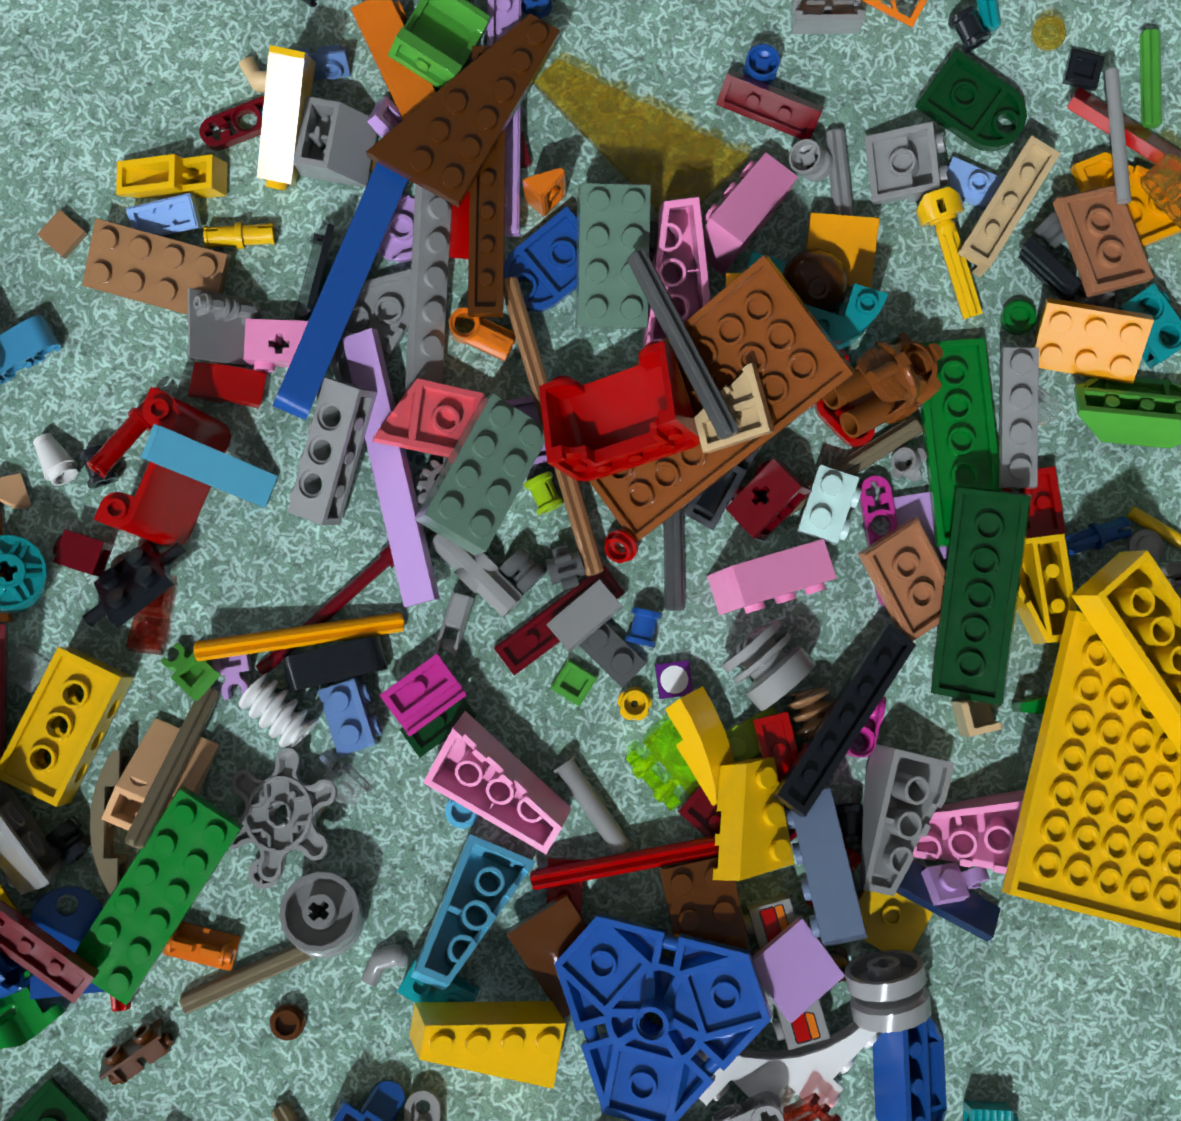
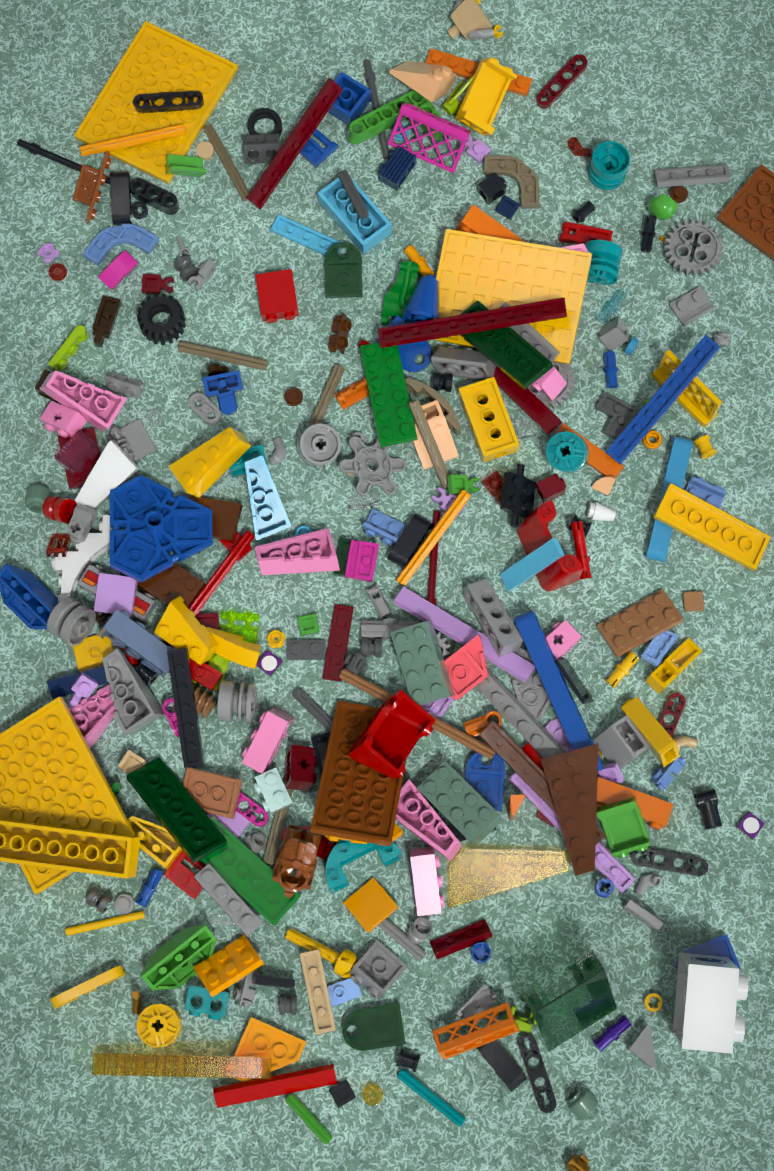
camera: 140 degrees right, 10 degrees down
(218, 326) = (589, 624): light grey hinge -> none
(227, 383) = (564, 605): red slope -> none
(276, 712) = (412, 501): white piece -> none
(544, 493) = (393, 685): lime bush -> none
(584, 615) = (329, 652): light grey tile -> none
(593, 806) = (254, 584): light grey pin -> none
(615, 551) = (342, 694): red plate -> none
(643, 627) = (301, 671): blue bush -> none
(683, 345) = (391, 783): dark grey axle -> none
(747, 405) = (343, 775): tan wing -> none
(818, 278) = (367, 878): reddish brown cylinder -> none
(1018, 317) = (268, 952): green tile -> none
(1102, 241) = (262, 1014): nougat tile -> none
(1117, 136) = (298, 1067): light grey bar -> none

